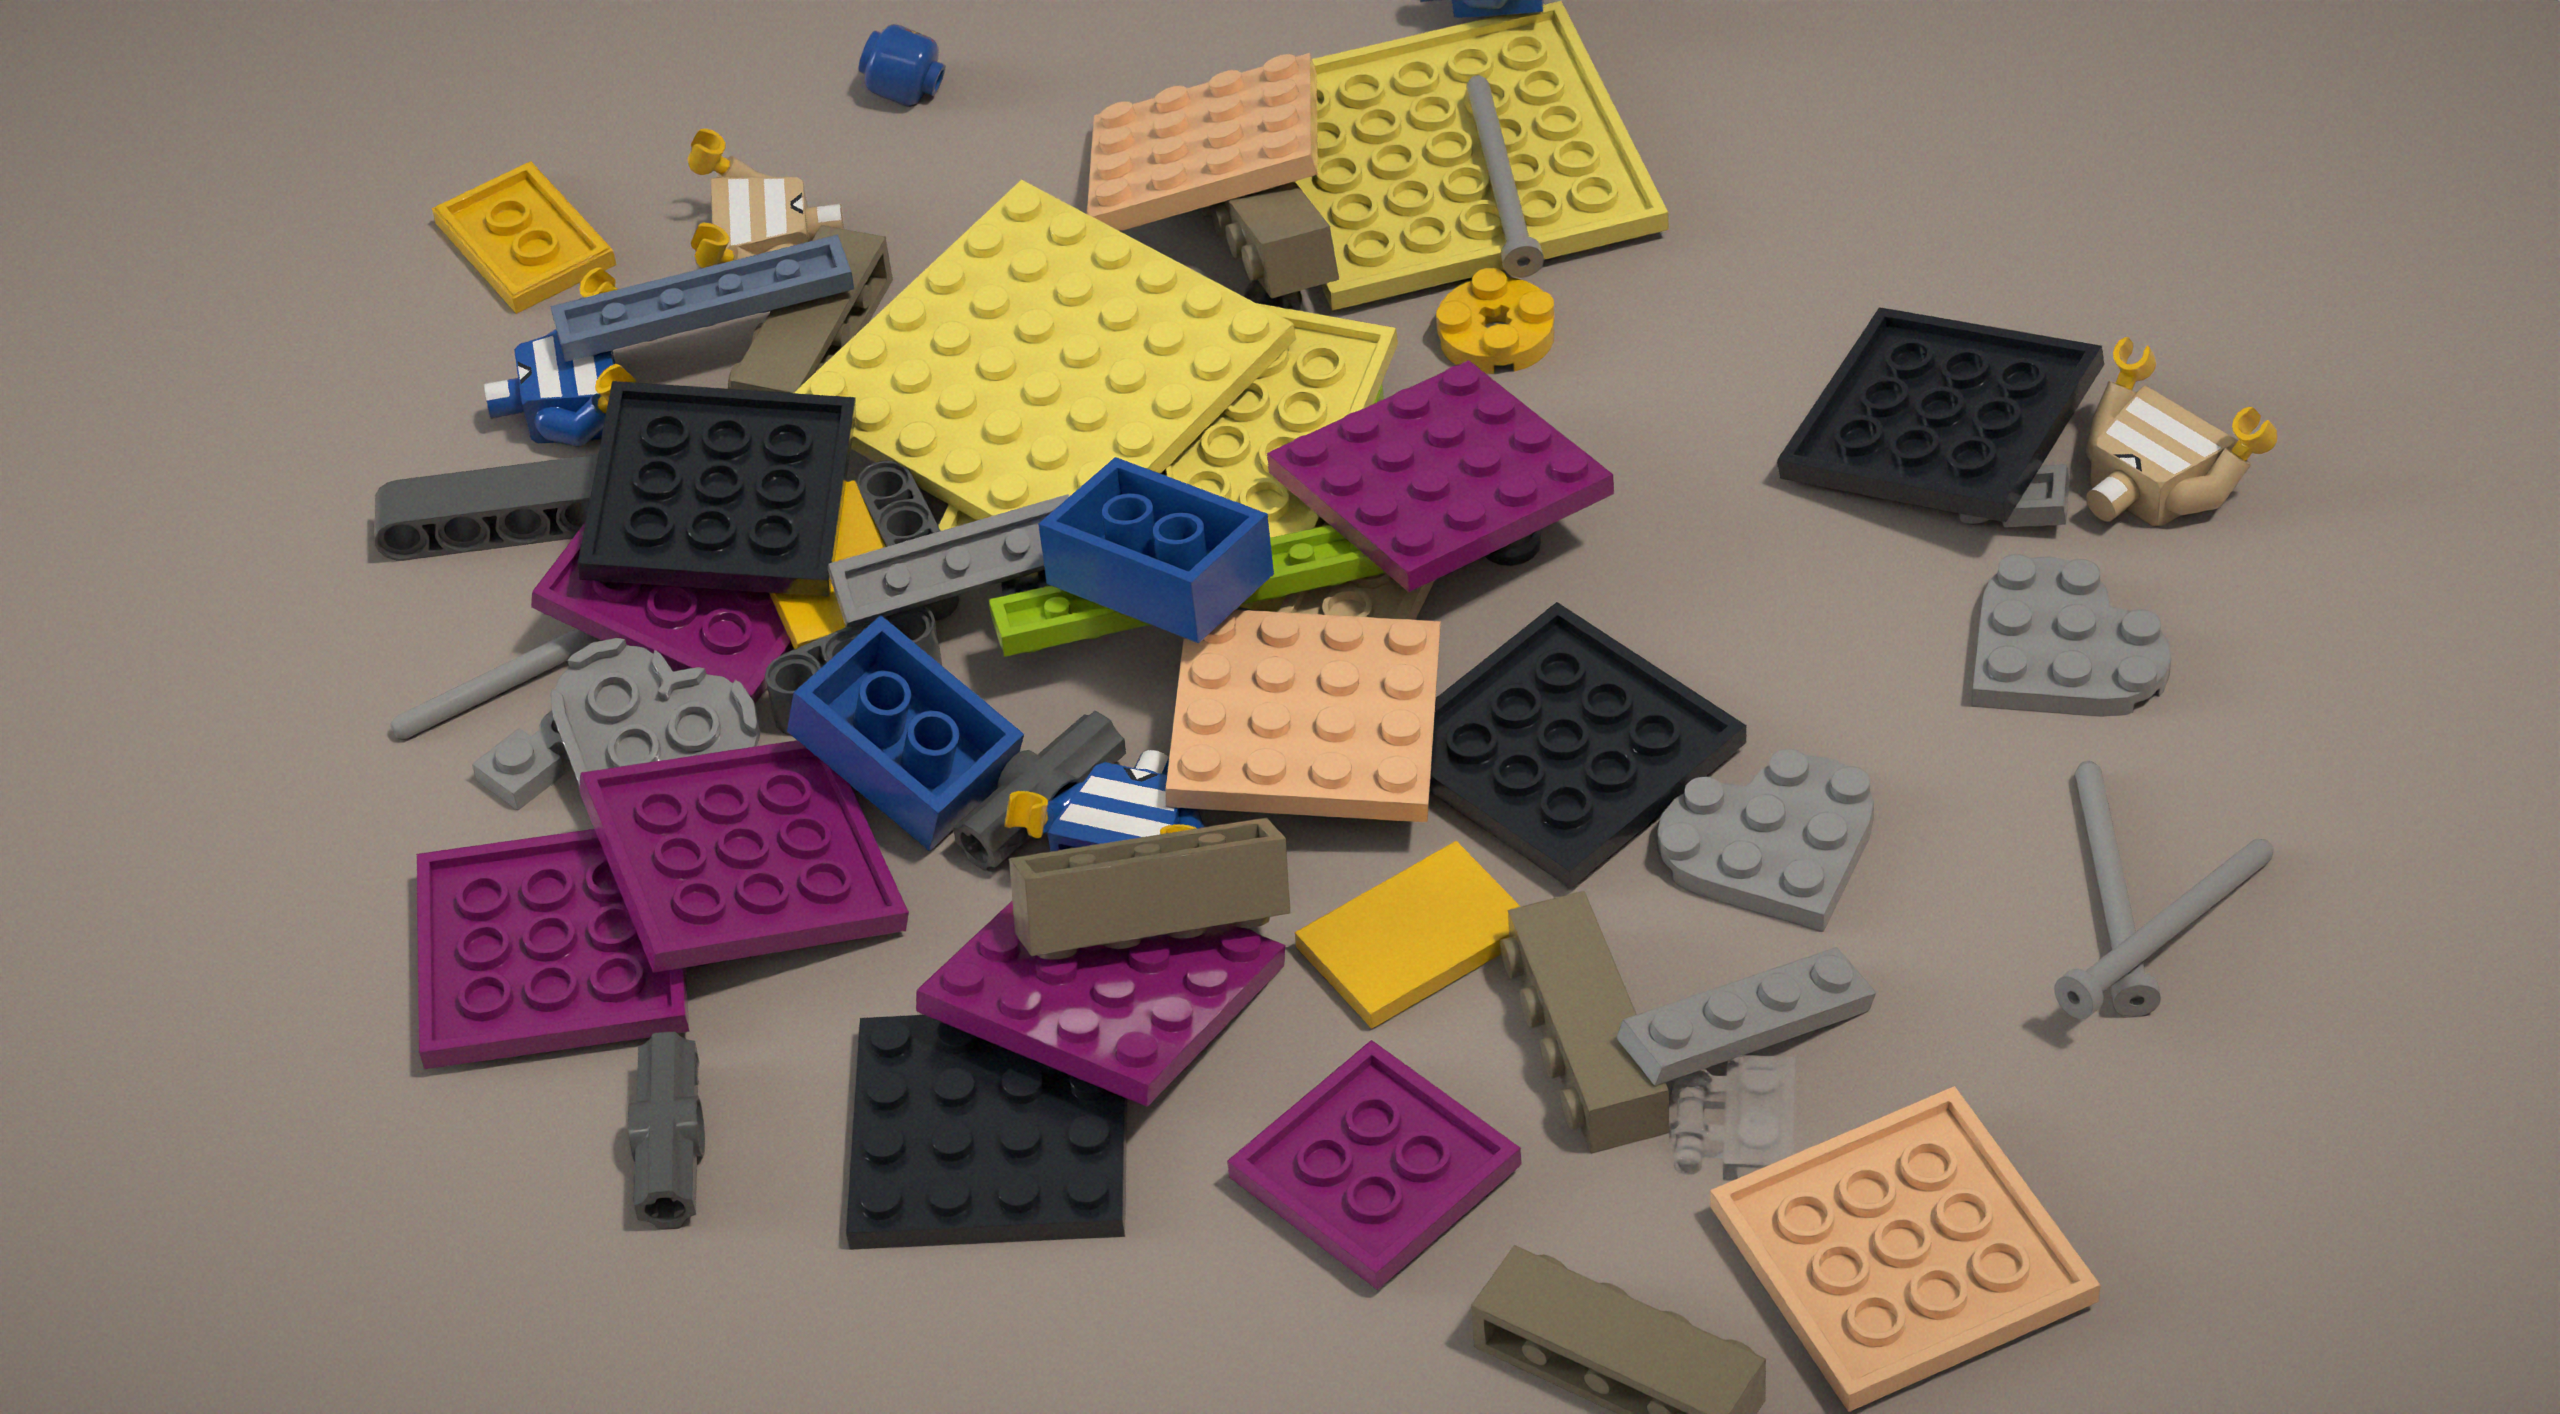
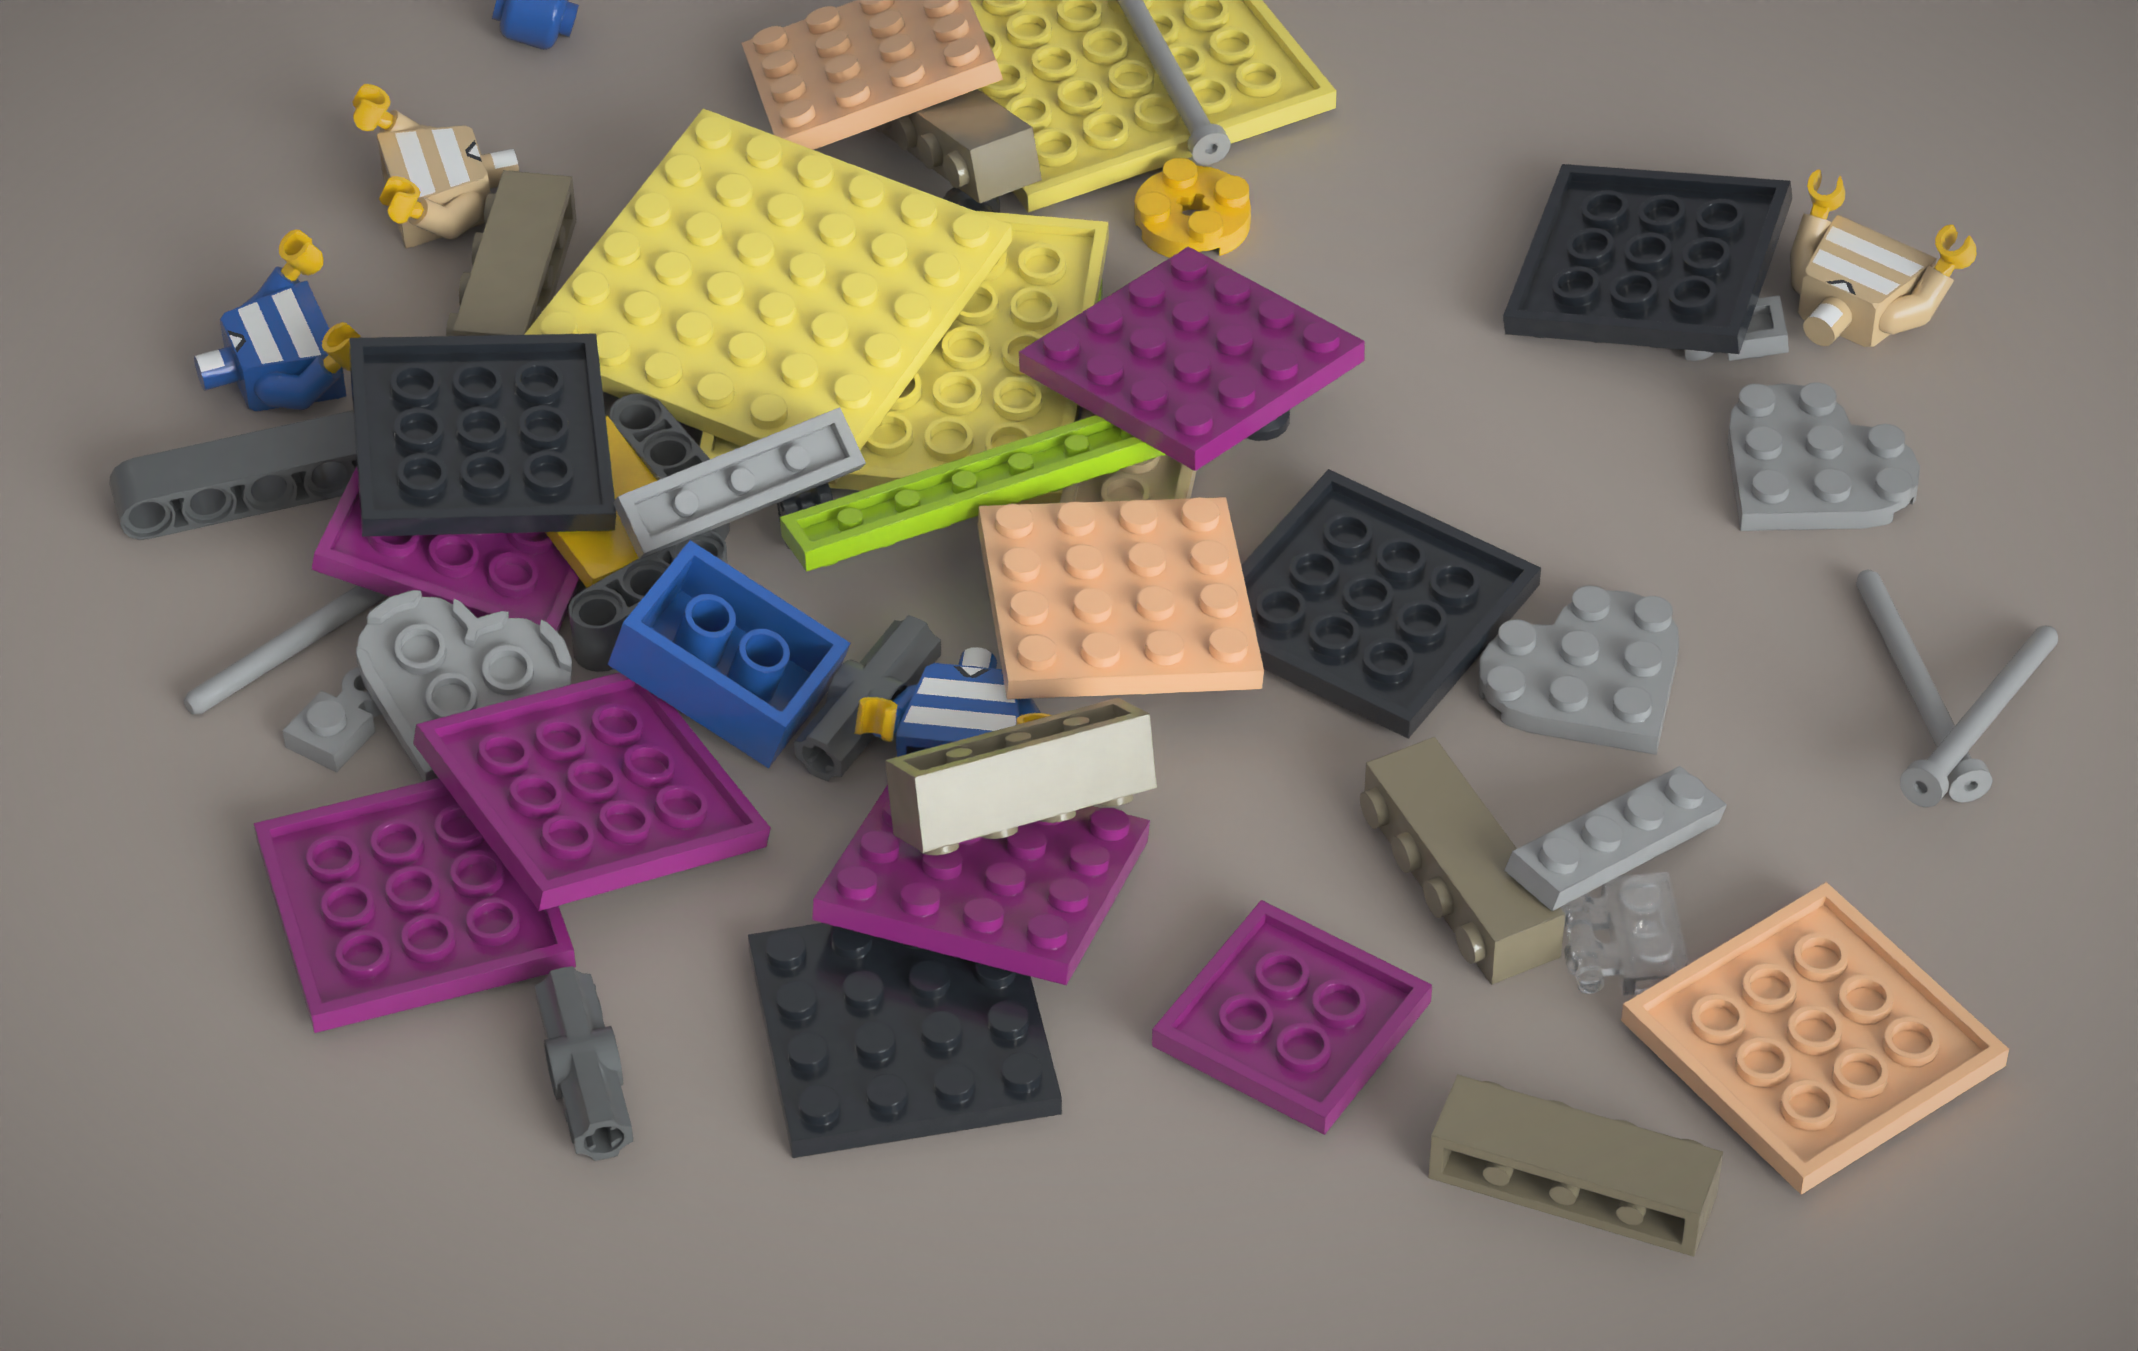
camera: 15 degrees left, 0 degrees up
(523, 236) = (186, 209): yellow tile -> none
(702, 298) = (406, 251): sand blue plate -> none
(1156, 549) = (947, 451): blue brick -> none
(1410, 934) = (1266, 797): yellow tile -> none

